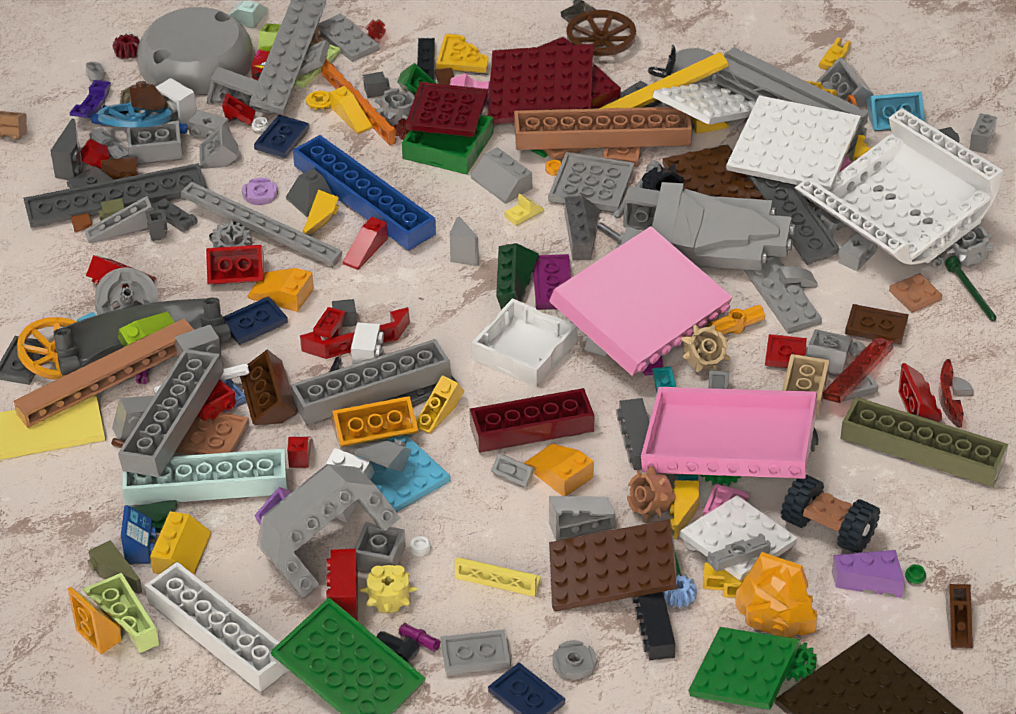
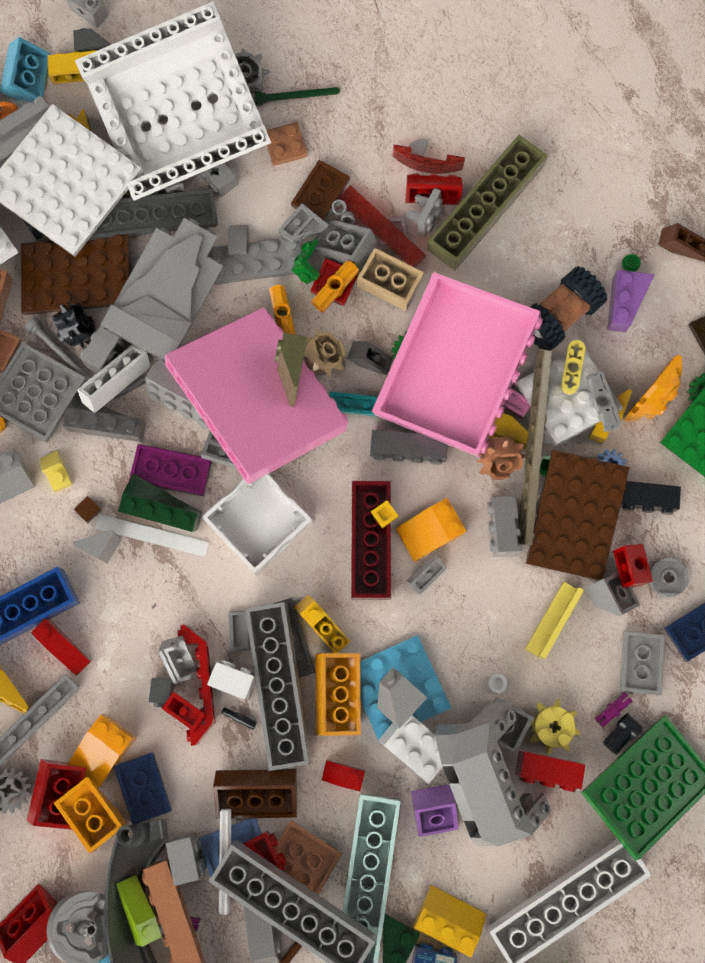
camera: 75 degrees left, 35 degrees up
(224, 282) = (90, 814): none -> light orange slope
(375, 309) = (177, 659): none -> light grey hinge
(486, 284) = (152, 535): none -> white sticker
(495, 237) = (88, 509): none -> reddish brown tile
(542, 615) = (611, 596): none -> light grey slope
(558, 411) = (384, 514): none -> yellow plate
(584, 614) = (632, 565): none -> red brick
(616, 213) = (114, 378): none -> white brick
(673, 305) = (290, 358): none -> olive slope
(676, 510) = (534, 446): none -> dark tan plate
(748, 526) = (577, 374): none -> light yellow beam
(776, 343) = (327, 294): none -> light orange piece
(783, 324) = (301, 267): none -> green bracket
(831, 313) = (302, 224): none -> light grey wing
(867, 336) = (337, 203): none -> light grey hinge
(889, 393) = (431, 210): none -> light grey plate

